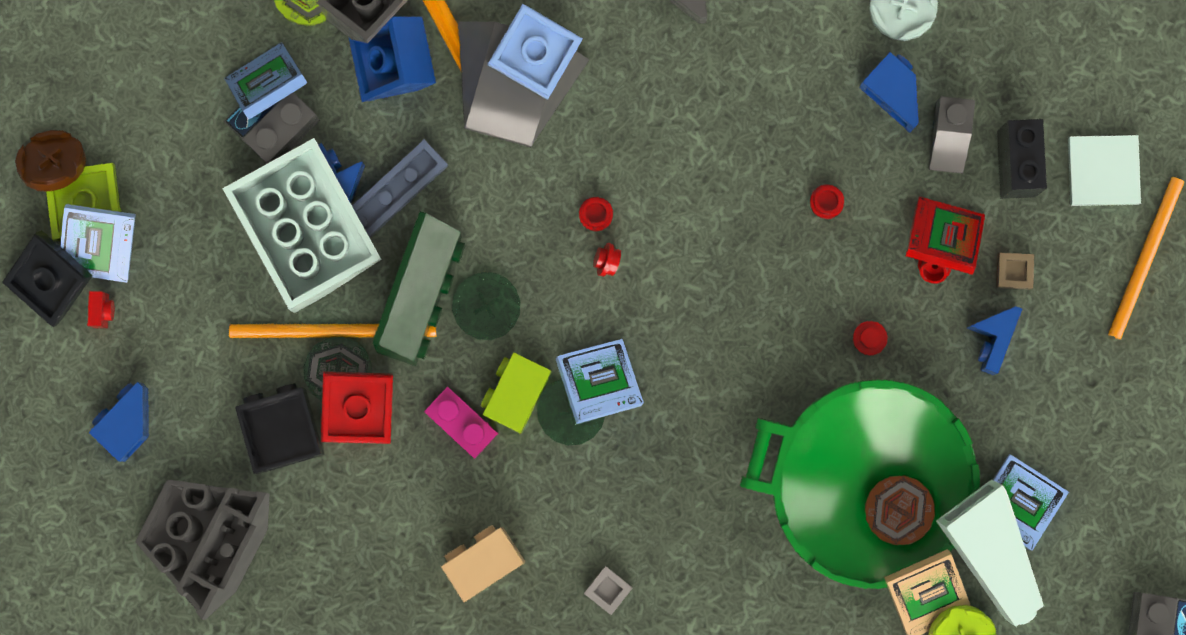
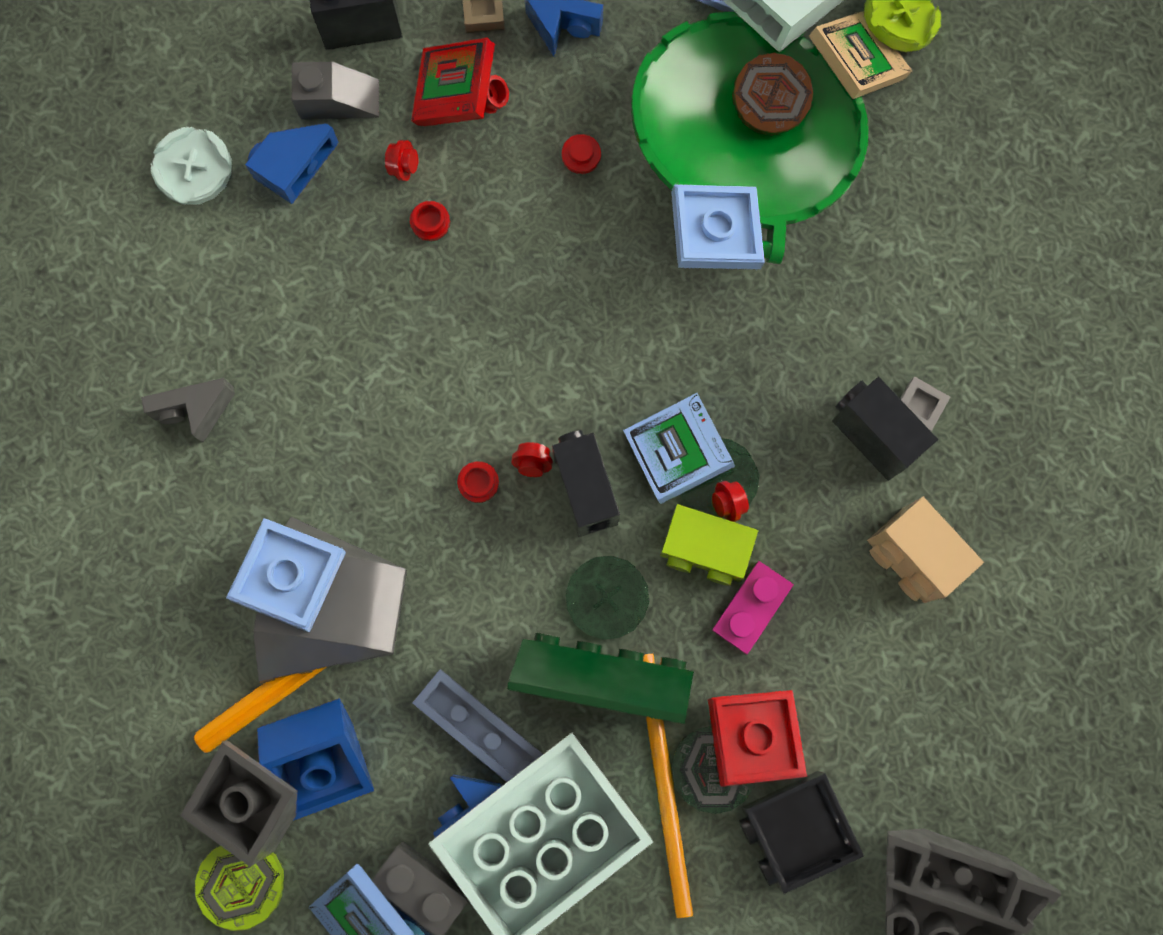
camera: 100 degrees left, 5 degrees down
(548, 414) = (730, 500): none -> red plate
(577, 297) = (586, 482): none -> black piece
(589, 548) = (882, 427): none -> black piece
(772, 433) = (717, 227): none -> light blue tile
(883, 183) = (401, 160): none -> red plate

